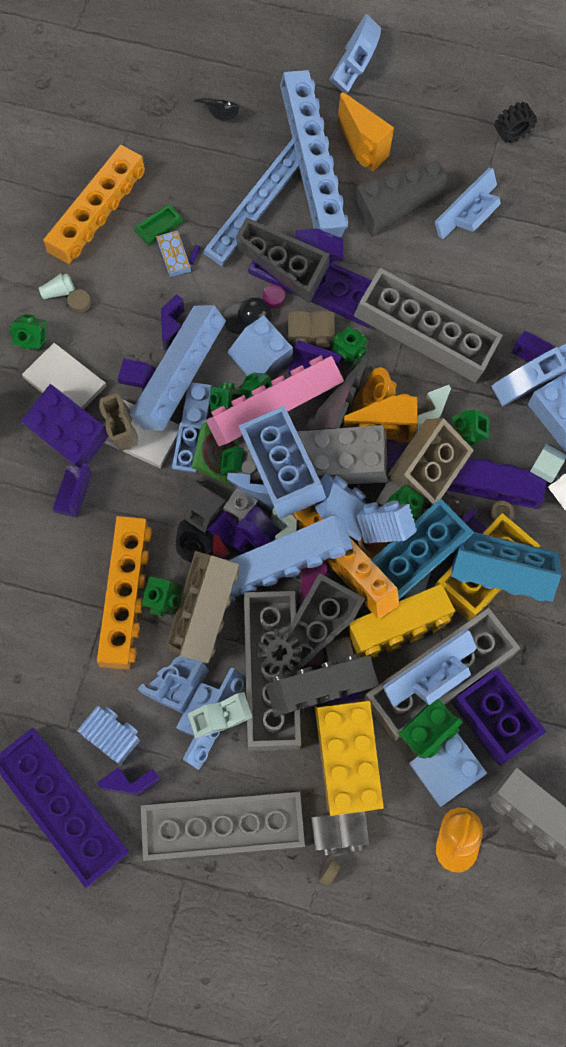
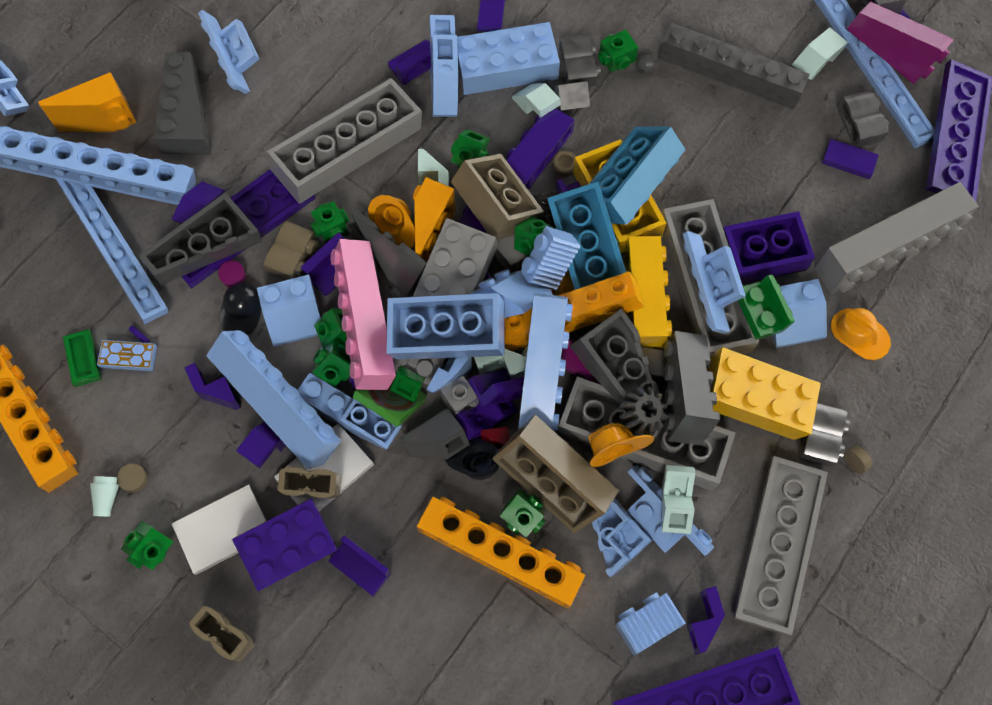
camera: 65 degrees left, 0 degrees up
(242, 638) = (613, 442): none -> light orange piece

